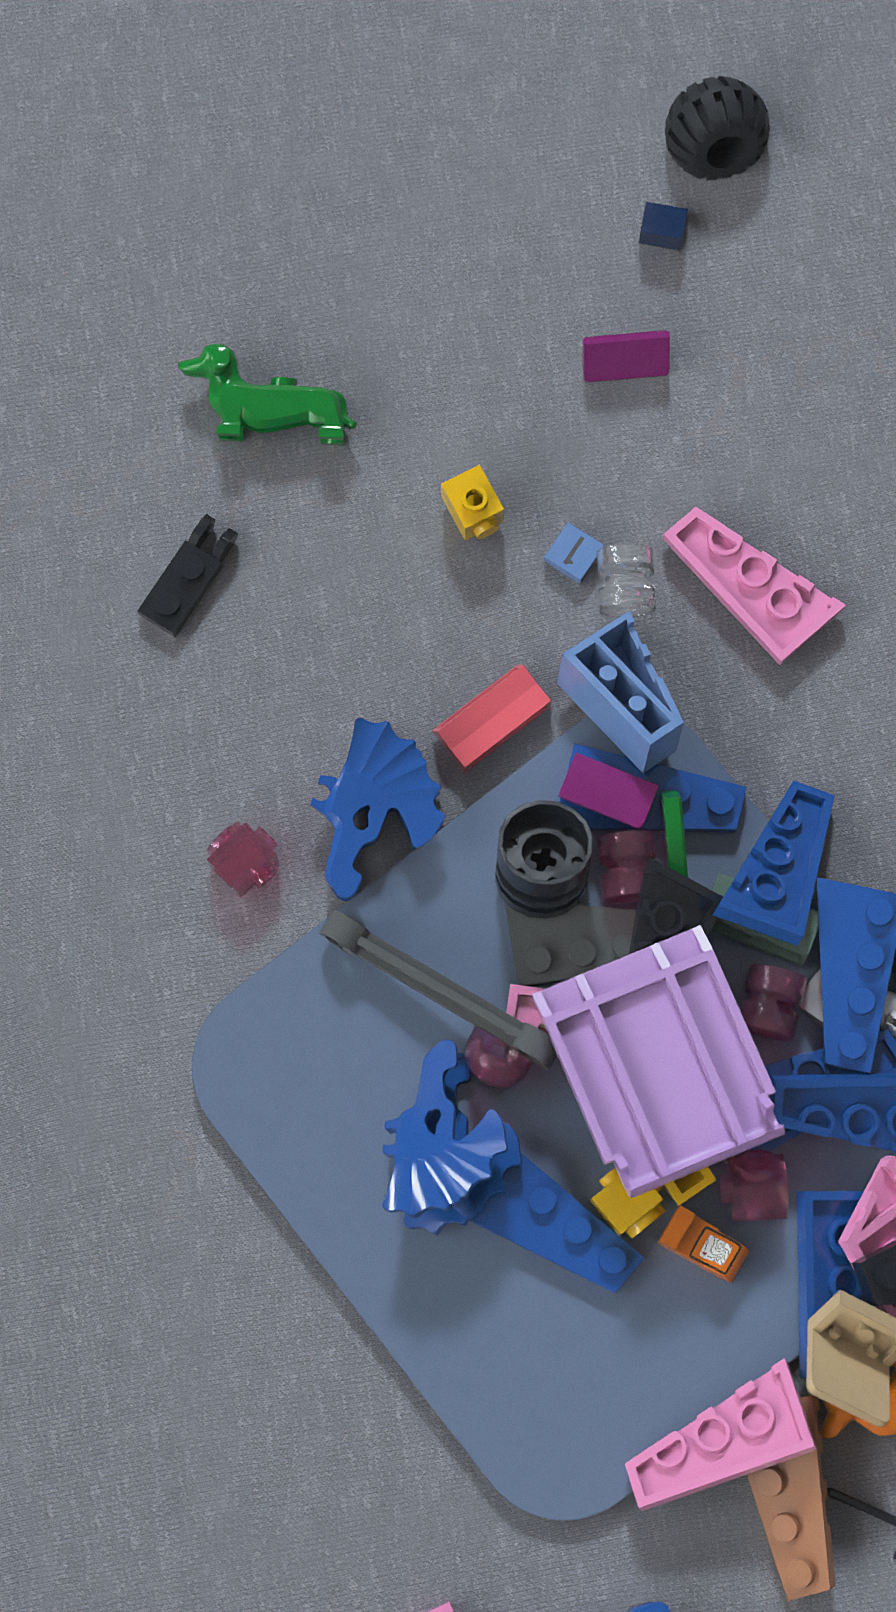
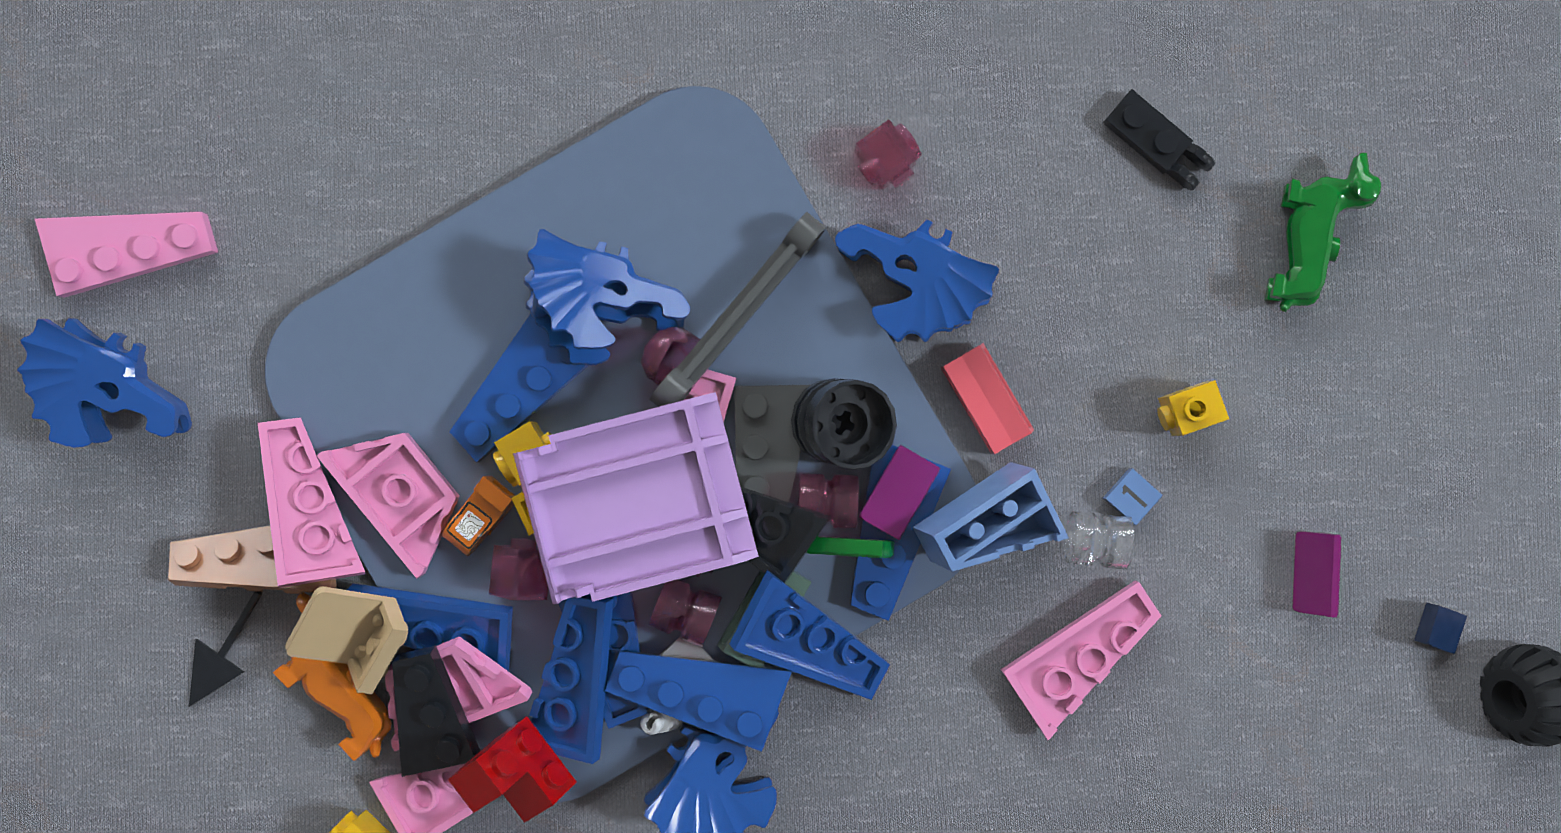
camera: 95 degrees right, 10 degrees up
(692, 1341) = (397, 493): none -> bright pink wing

